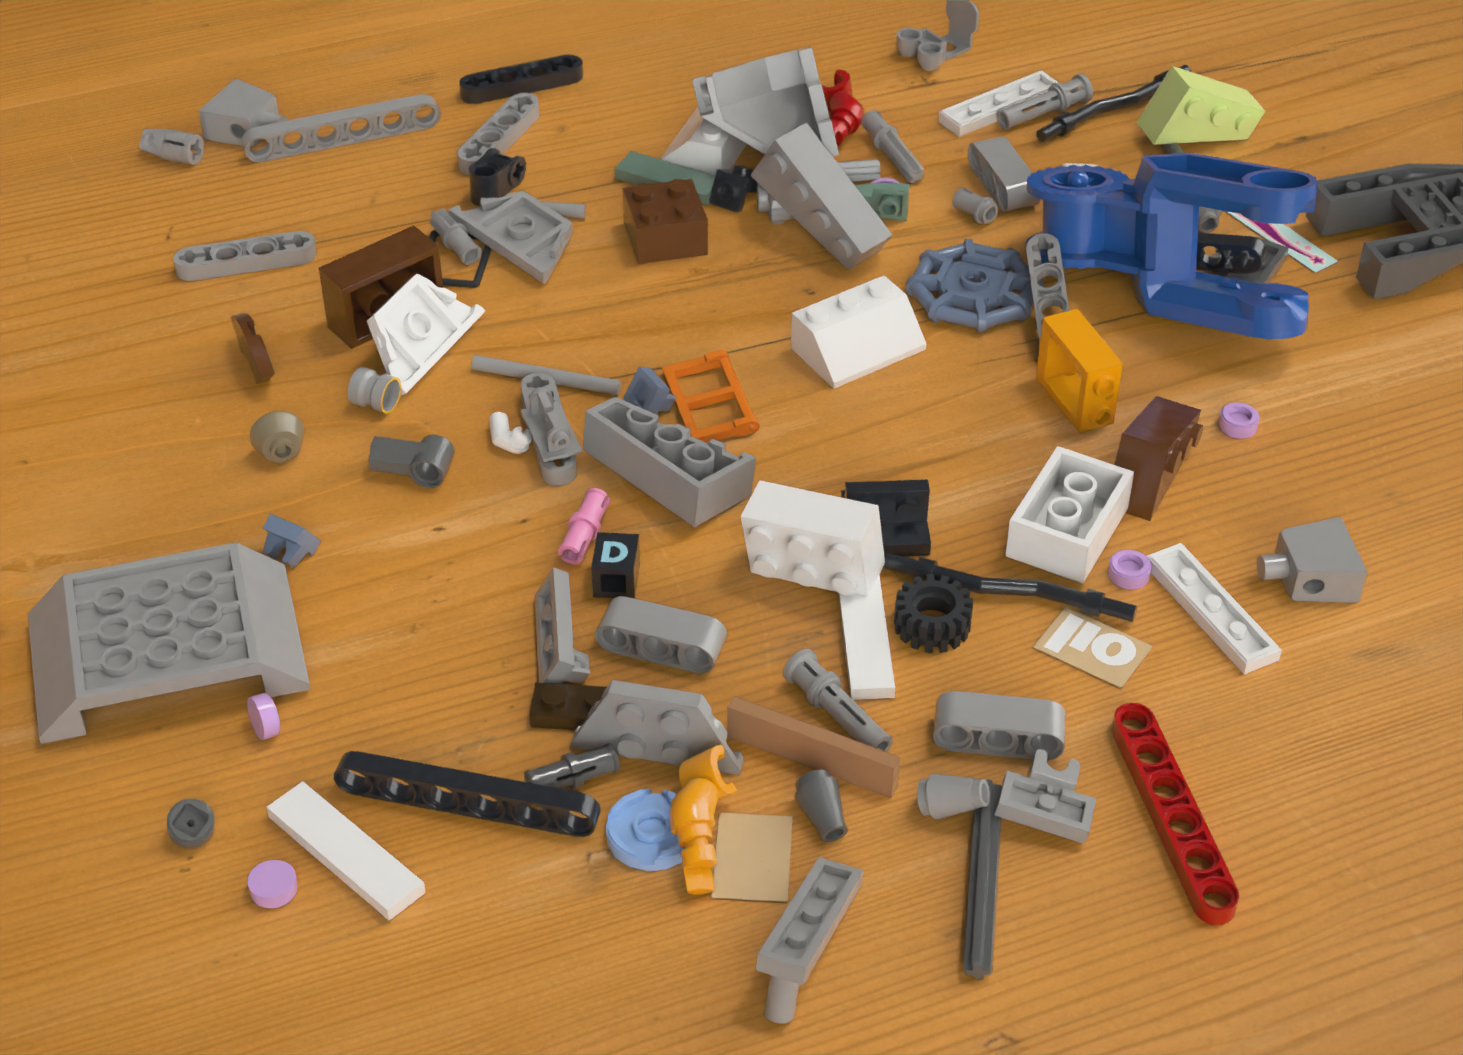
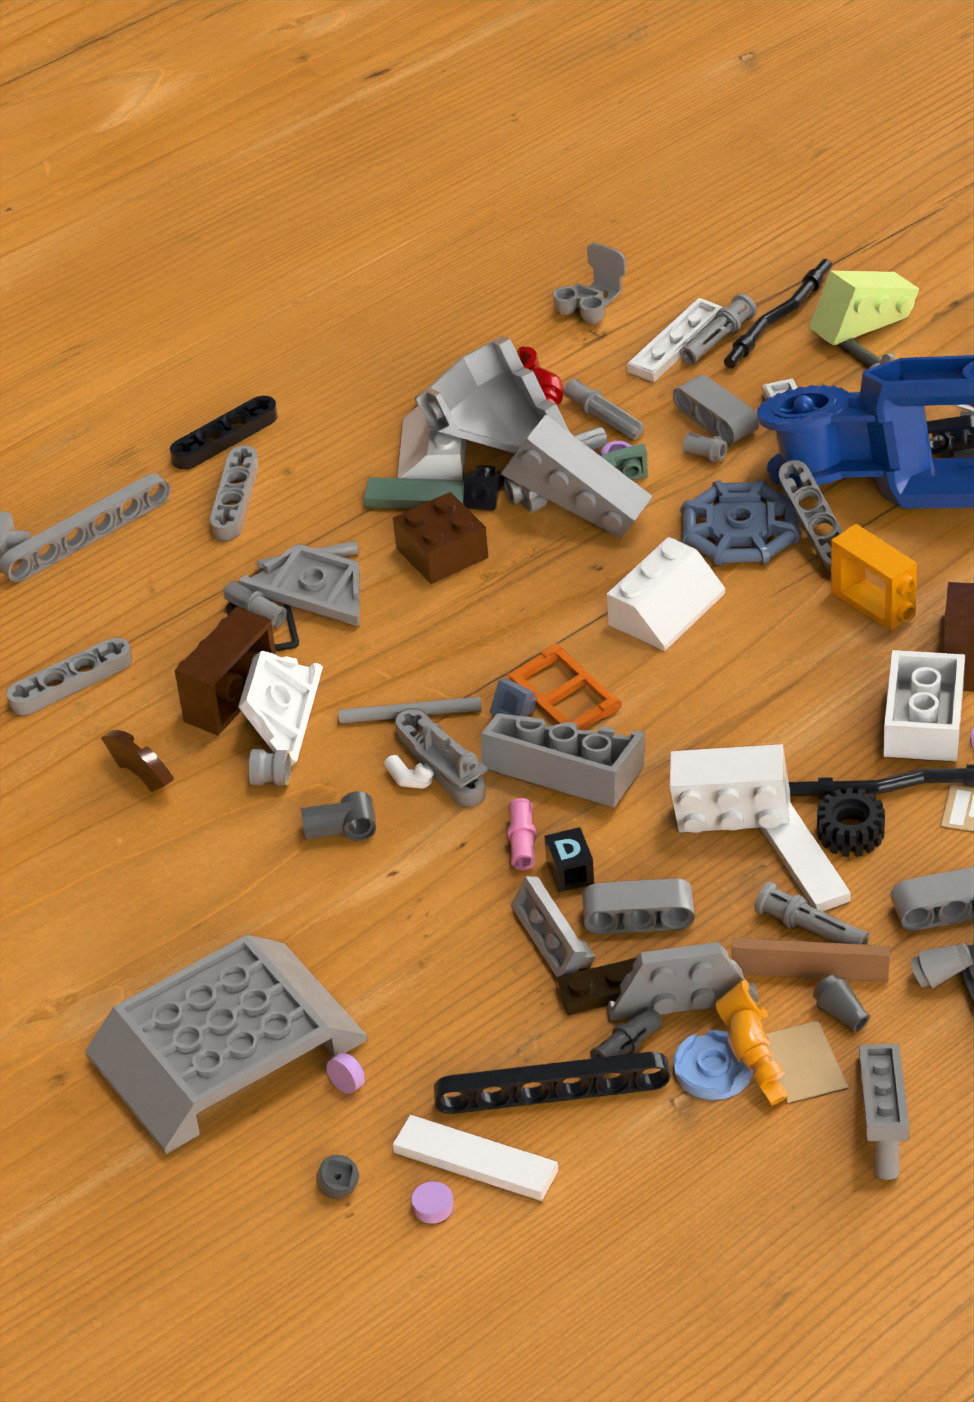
camera: 15 degrees left, 0 degrees up
(277, 436) = (210, 833): dark tan cone -> none
(289, 536) = (270, 915): sand blue tile -> none
(495, 175) = (258, 536): black piece -> none
(901, 511) = (785, 730): black bracket -> none

